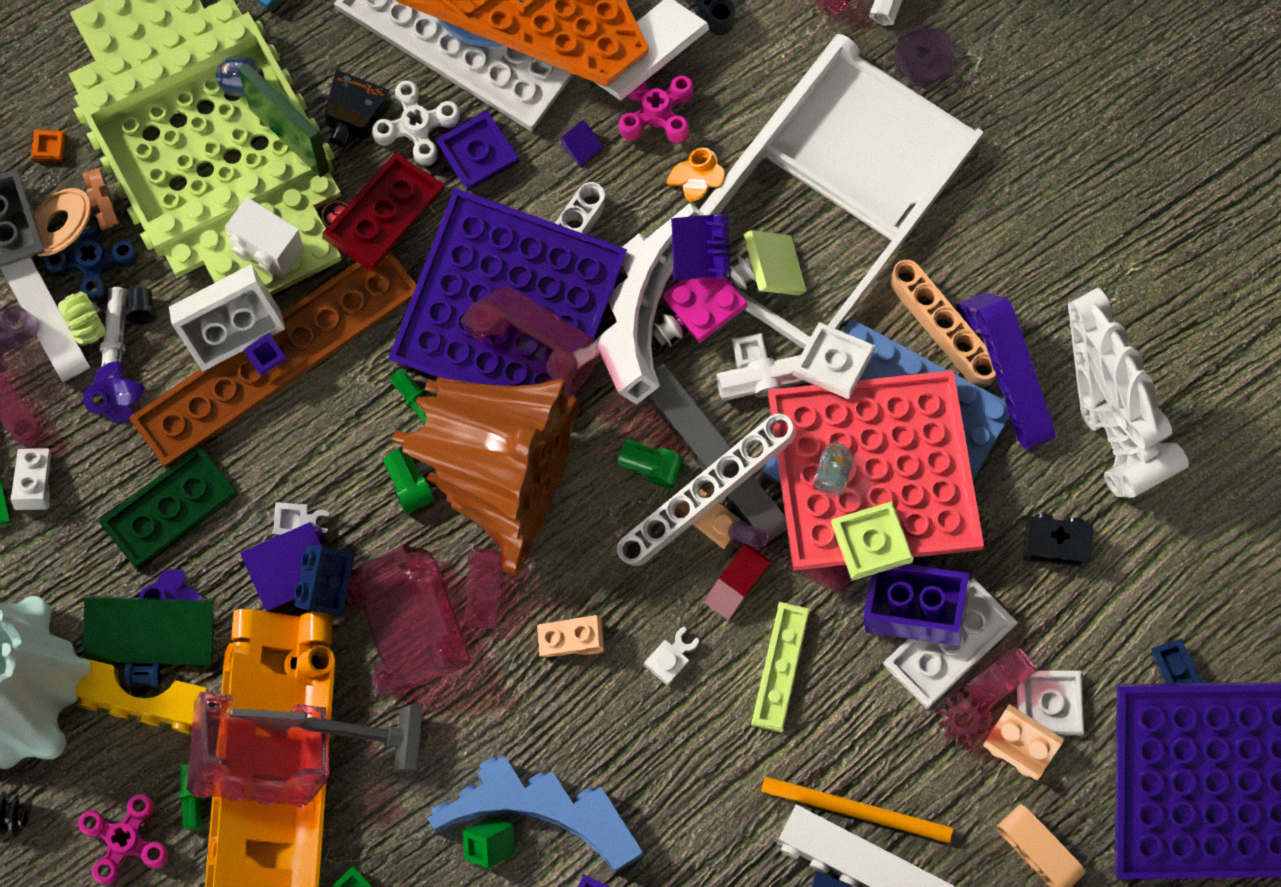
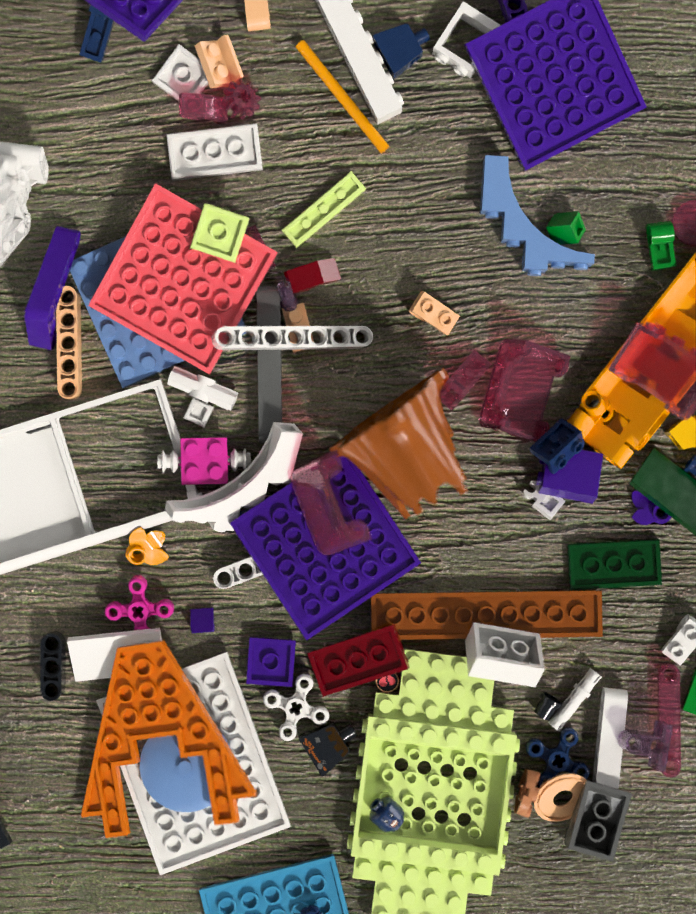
camera: 145 degrees left, 15 degrees up
(48, 146) = (532, 857): orange tile -> none
(81, 318) = (590, 720): yellowish green gear -> none
(117, 393) = (599, 657): dark purple plate -> none
(264, 239) = (449, 687): white brick -> none
(265, 355) = (496, 614): dark purple slope -> none
(283, 120) = (383, 758): dark green tile -> none
(404, 737) = (574, 321): dark grey piece -> none
(409, 391) = (422, 530): green axle -> none
(410, 487) = (469, 467): green piece -> none
(658, 465) = (308, 381): green piece -> none
(669, 659) = (385, 260): white plate -> none
(701, 246) = (184, 488): dark purple hinge -> none
(774, 263) = (143, 453): yellowish green tile -> none
(833, 360) = (155, 363): white tile -> none
(834, 469) = (208, 293): clear light blue rock -> none
(918, 604) = (218, 180): dark purple brick -> none
(1043, 547) = (100, 151): black brick -> none

